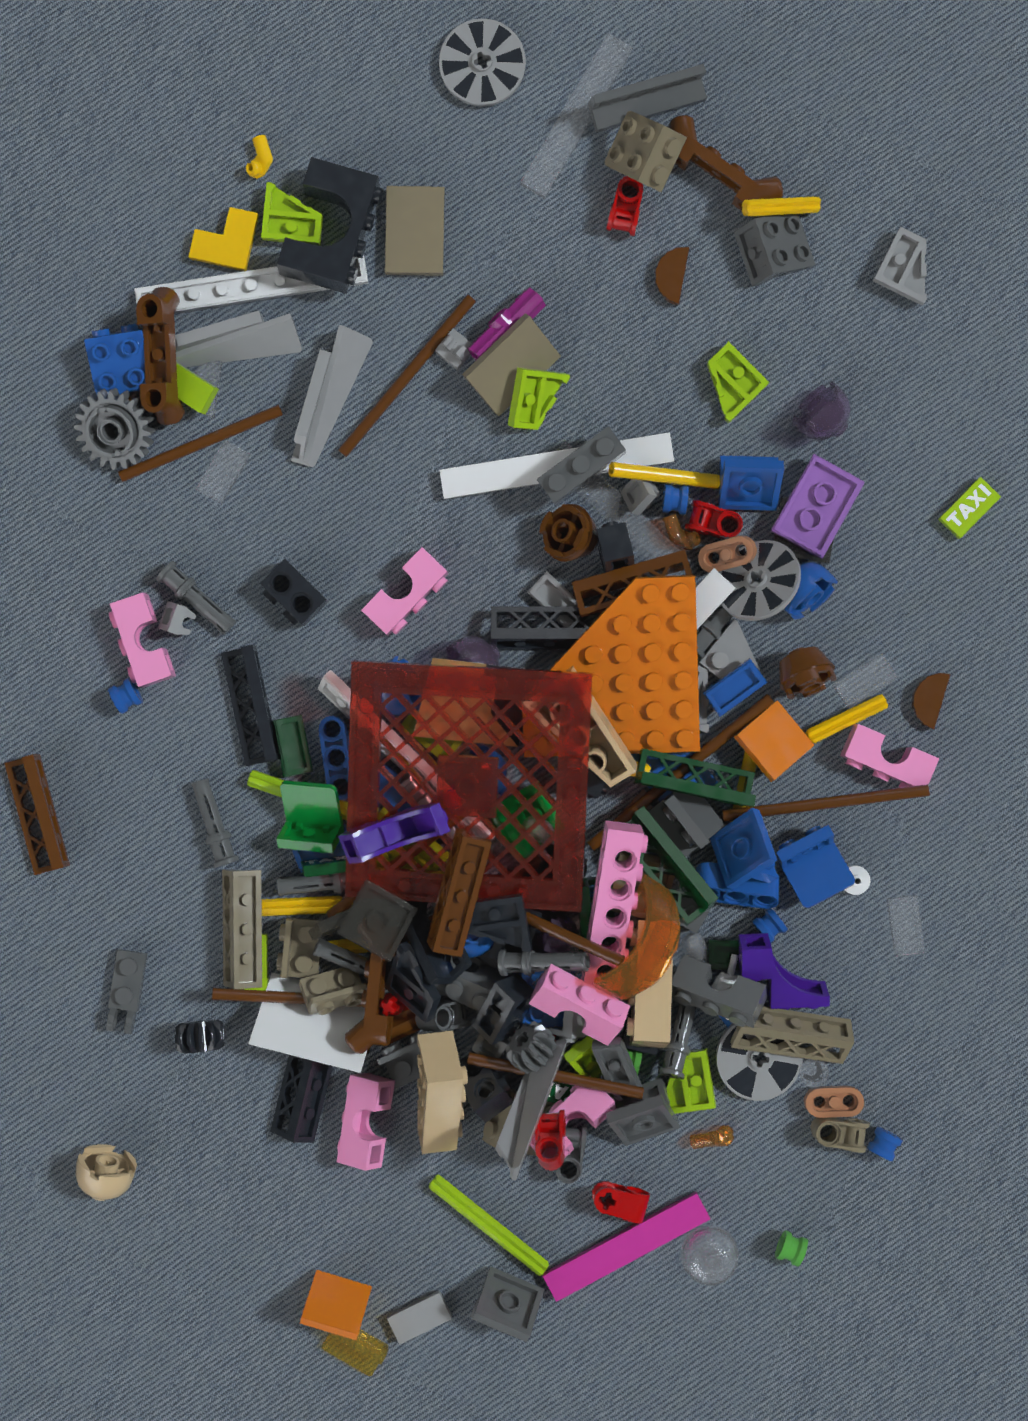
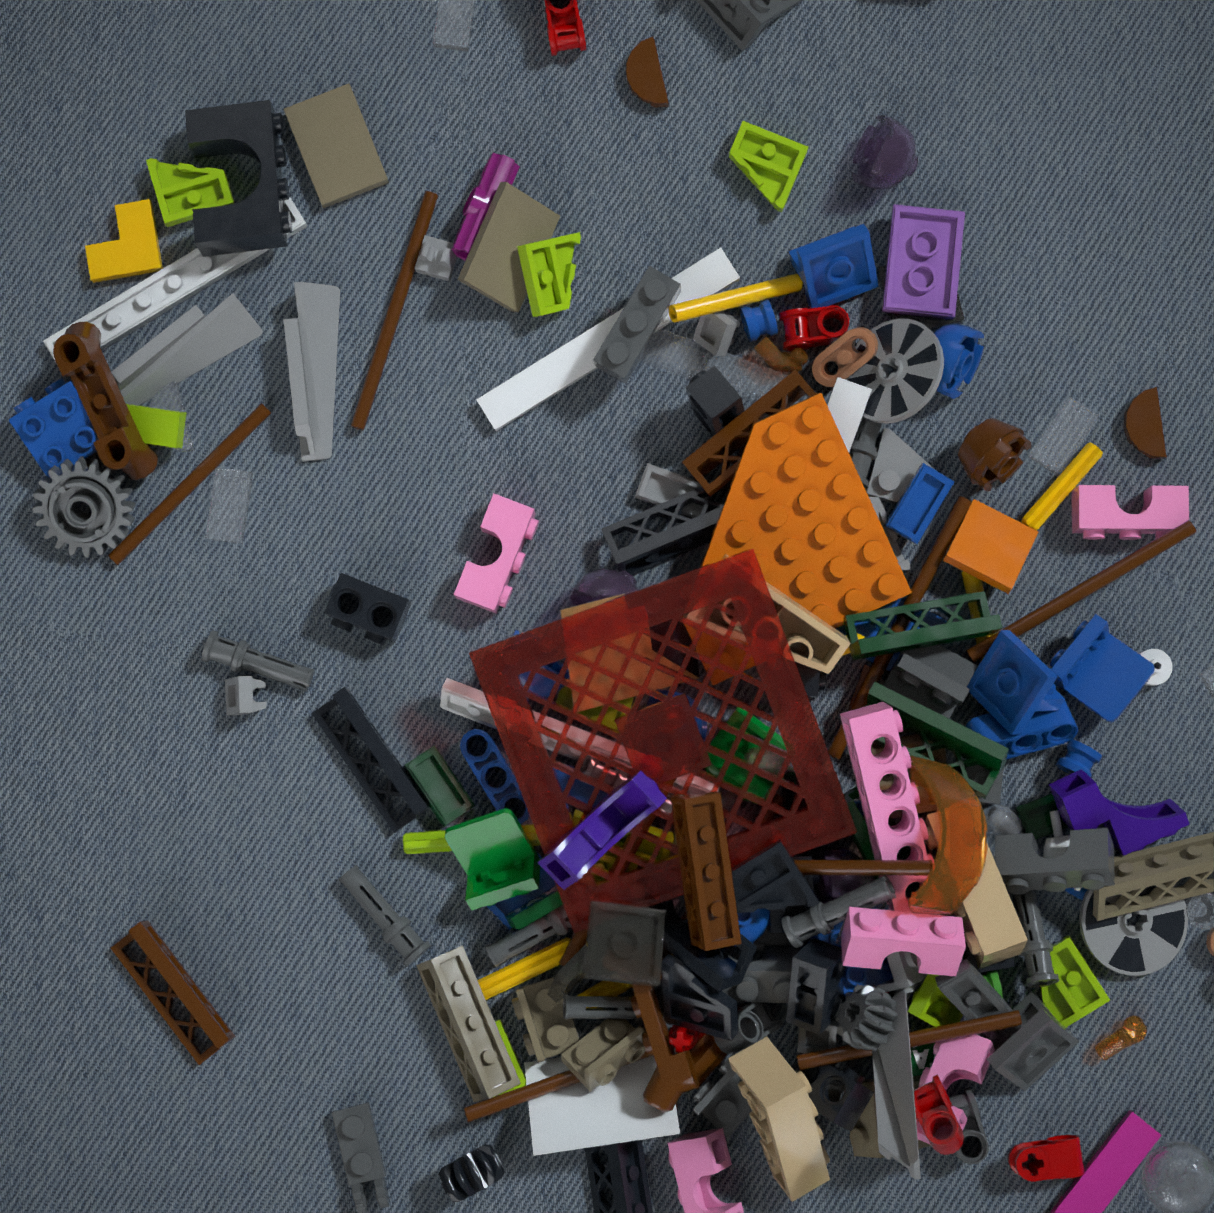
camera: 20 degrees left, 5 degrees down
(125, 695) = (220, 809): blue wheel -> none
(130, 618) = (191, 715): bright pink arch -> none
(263, 159) = (131, 137): yellow arm -> none
(568, 533) = (654, 407): reddish brown cone -> none
(969, 507) = (1094, 193): lime tile -> none

